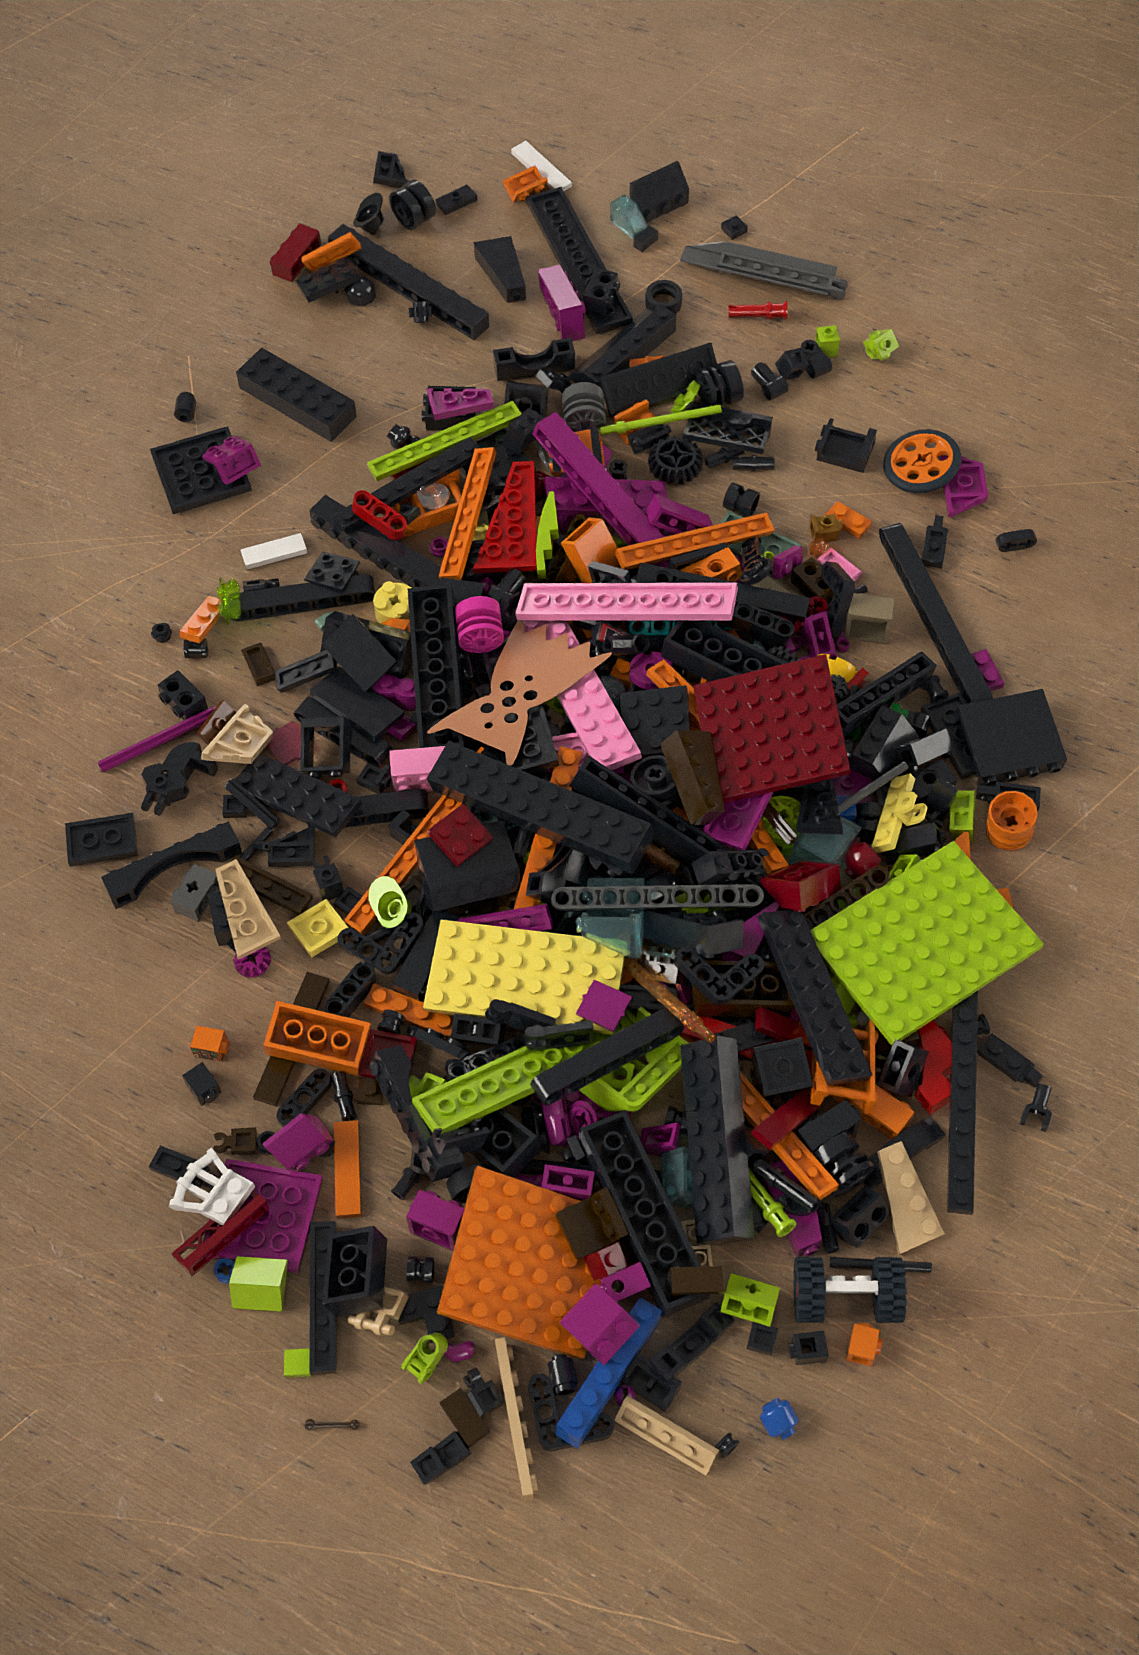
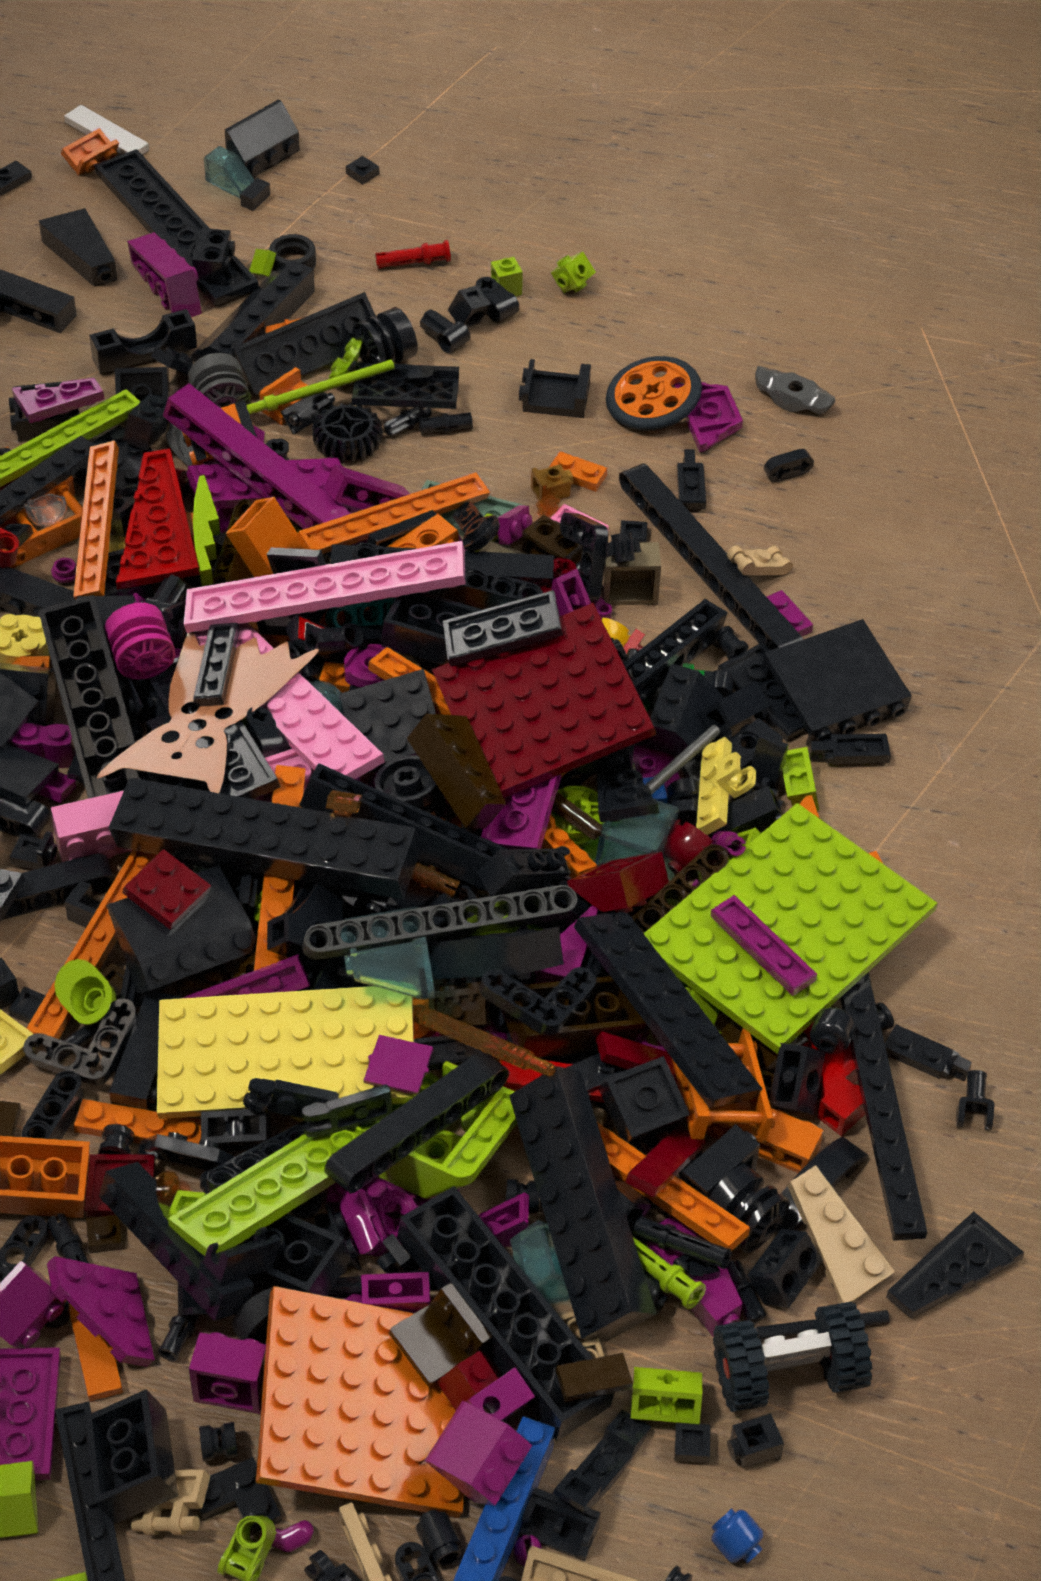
camera: 15 degrees left, 10 degrees down
(360, 1151) = (107, 1306): none -> magenta plate
(425, 1059) = (170, 1181): none -> clear orange hinge
(533, 652) = (216, 664): none -> black tile
(557, 716) = (265, 732): none -> black piece
(600, 792) = (343, 802): none -> clear orange plate
(639, 301) = (262, 262): none -> lime tile
(740, 499) = (439, 464): black wheel -> none
(752, 663) = (502, 628): none -> black tile
(767, 267) = (413, 206): dark grey hinge -> none
(864, 601) = (623, 547): none -> black gear
(864, 1344) = (825, 1424): orange brick -> none
(880, 581) = (638, 529): none -> black tile
(893, 864) = (730, 842): none -> magenta pin
(899, 957) = (763, 945): none -> magenta tile
(938, 1035) = (832, 1030): none -> black head
(973, 622) = (760, 561): none -> tan plate
(992, 1236) = (953, 1265): none -> black wing
(1012, 810) = (860, 774): orange wheel -> none
(1047, 483) = (777, 384): none -> dark grey piece

